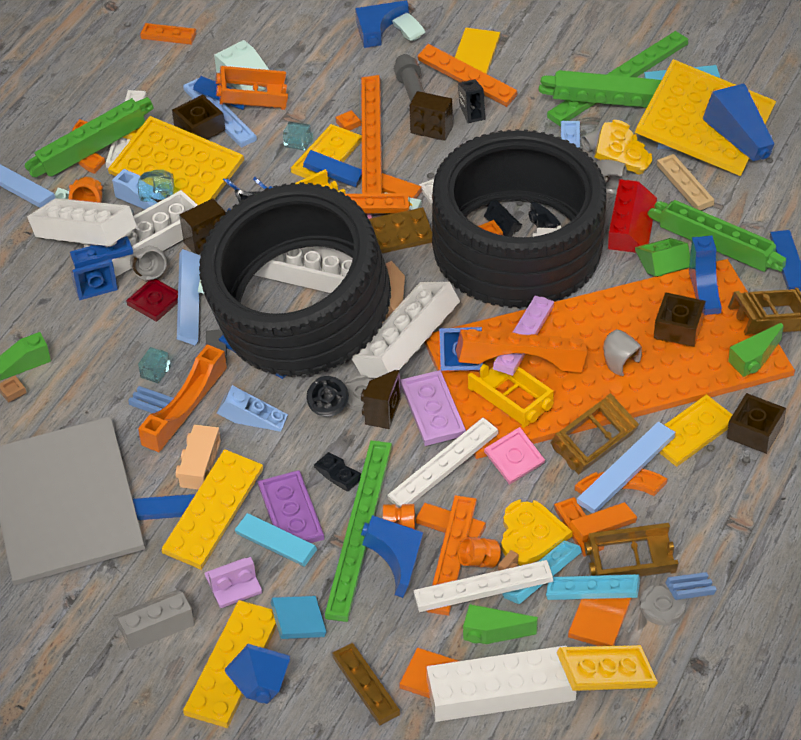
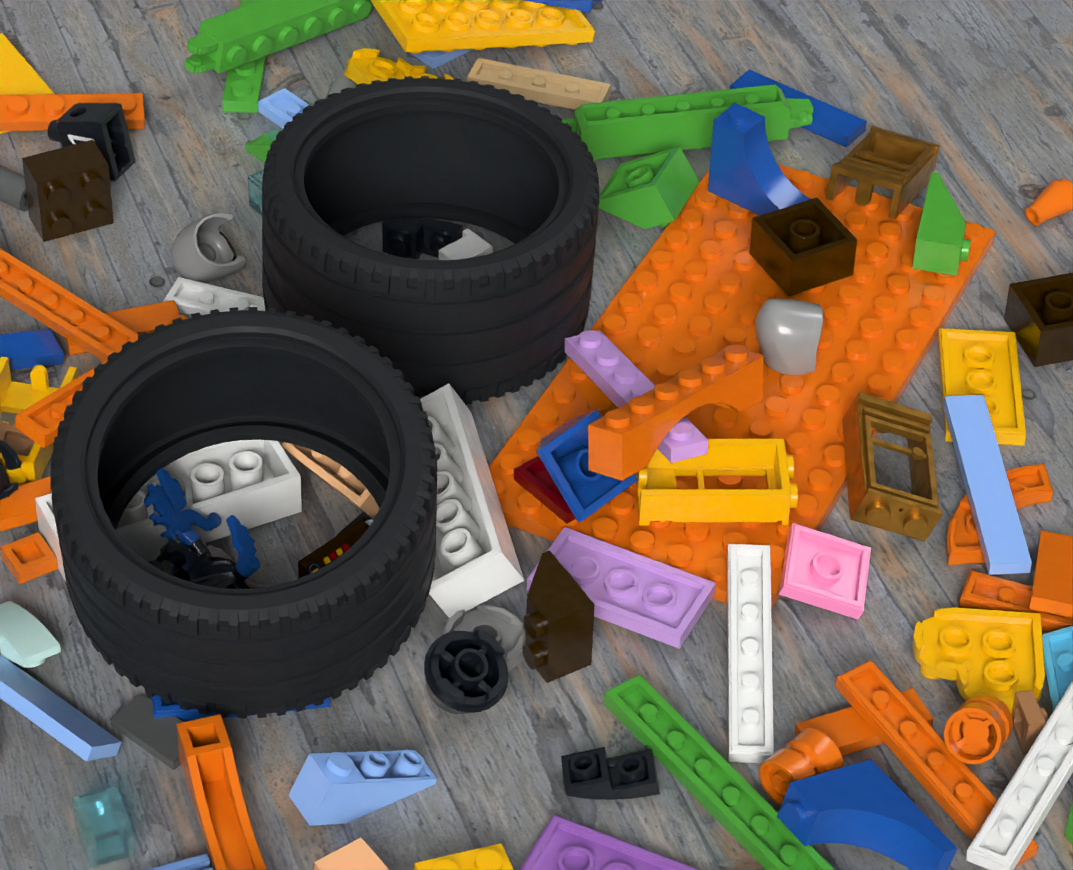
camera: 50 degrees left, 5 degrees down
(290, 299) = (191, 556): none -> helmet

